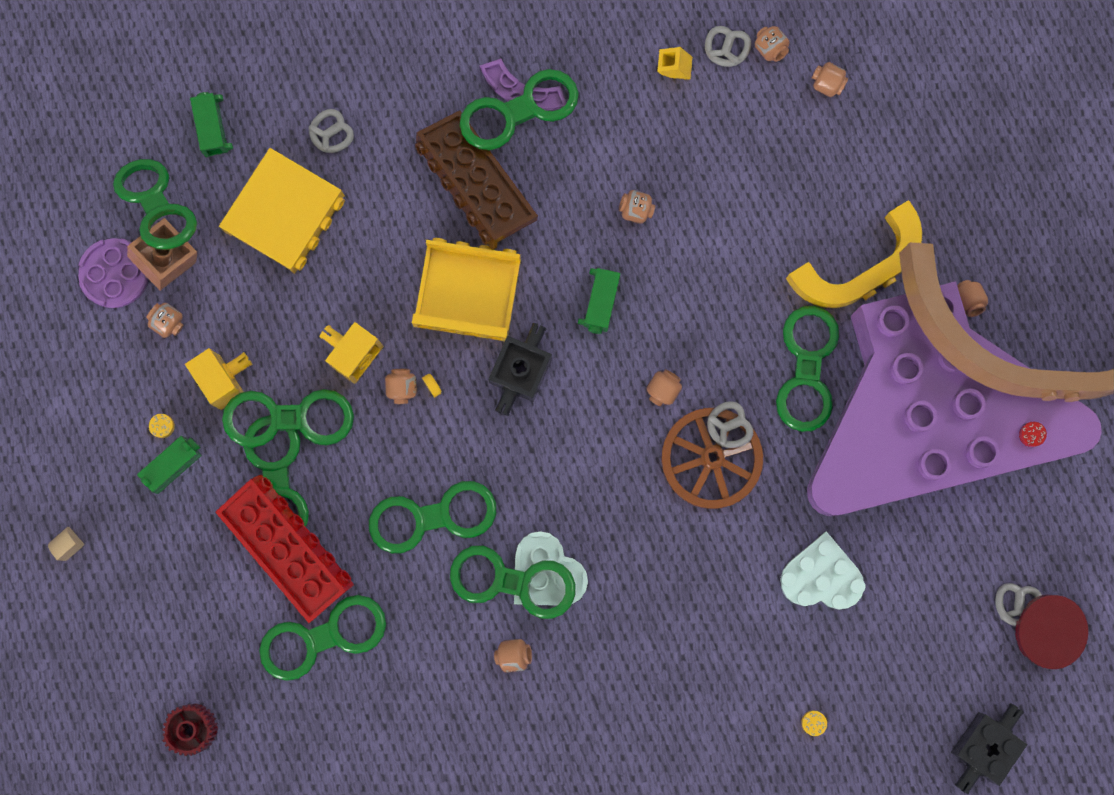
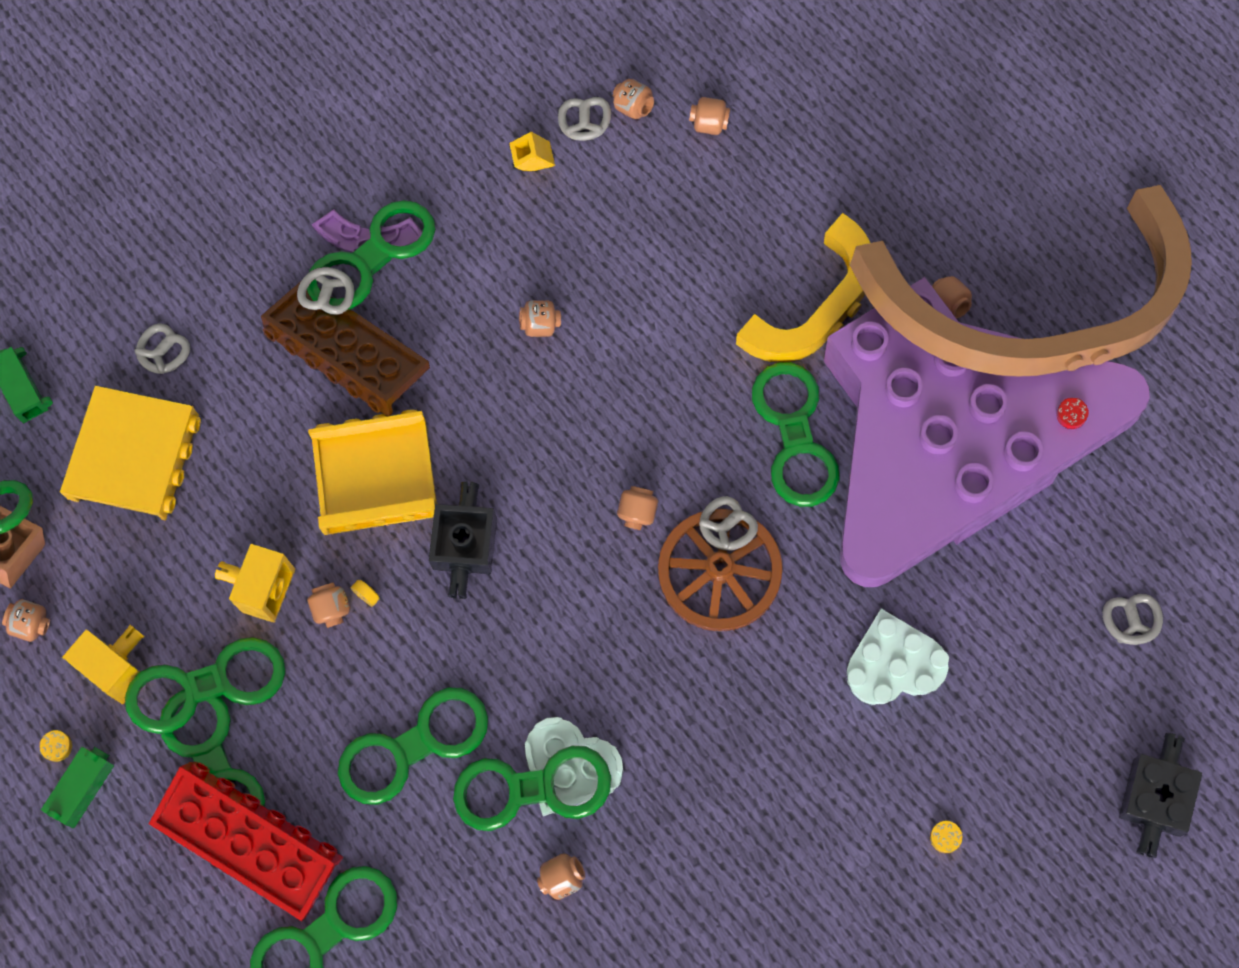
camera: 15 degrees left, 10 degrees down
(474, 130) = (326, 290): none -> light grey piece
(601, 300) = (532, 434): green brick -> none
(1052, 631) = (1182, 635): dark red tile -> none

